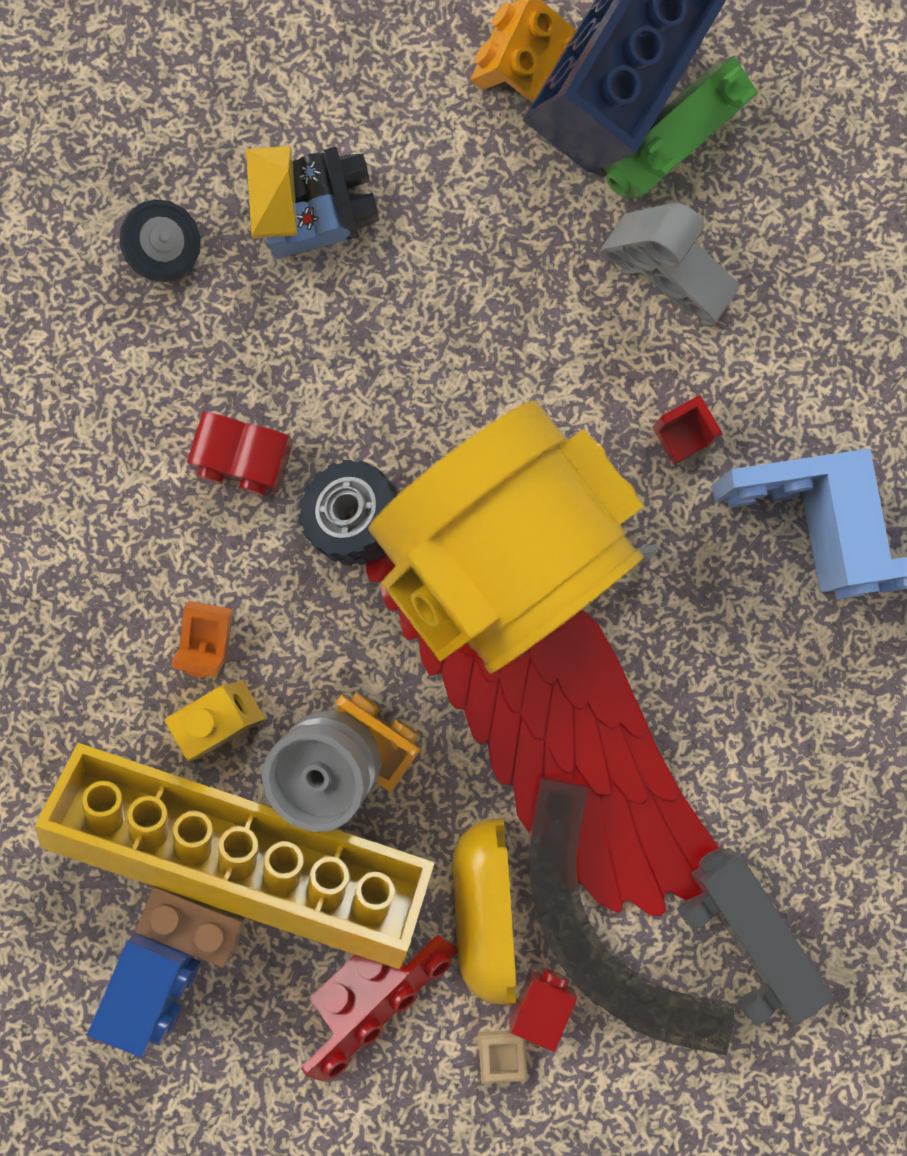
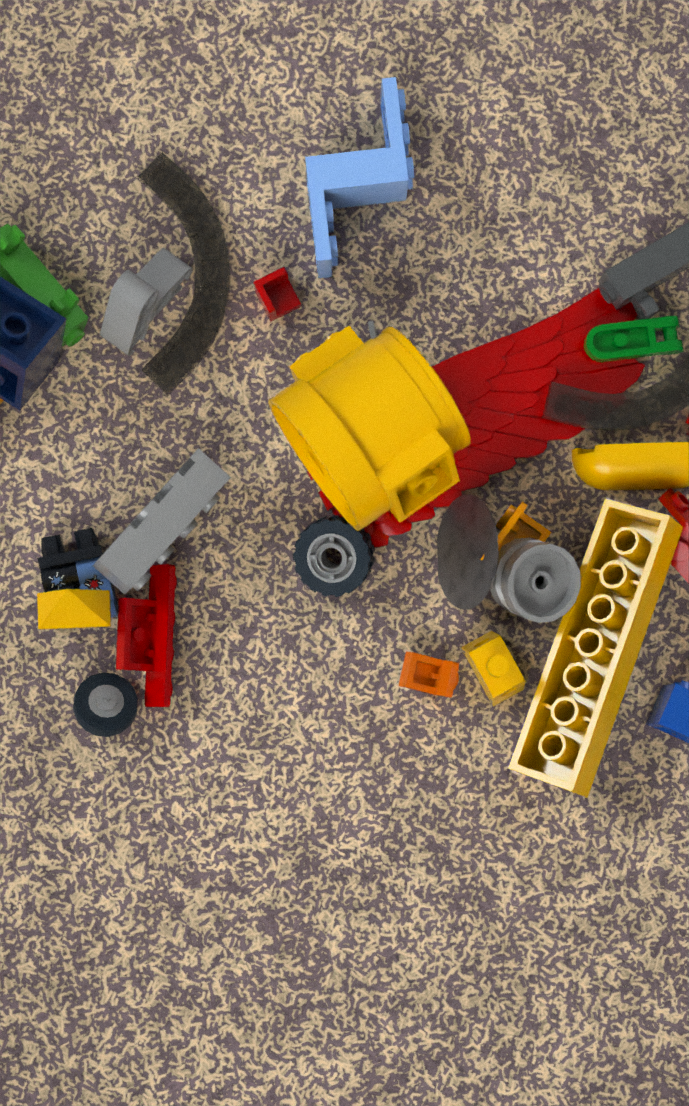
camera: 85 degrees left, 0 degrees up
(191, 926) = (647, 684): medium nougat brick -> none
(240, 453) = (281, 644): red brick -> none
(246, 285) = (147, 635): none -> red bracket
(367, 677) = (462, 540): none -> flat silver sticker
(381, 290) = (161, 522): none -> light grey wedge
(651, 896) = (633, 339): none -> green plate
(706, 348) = (212, 273): none -> clear smoke plate

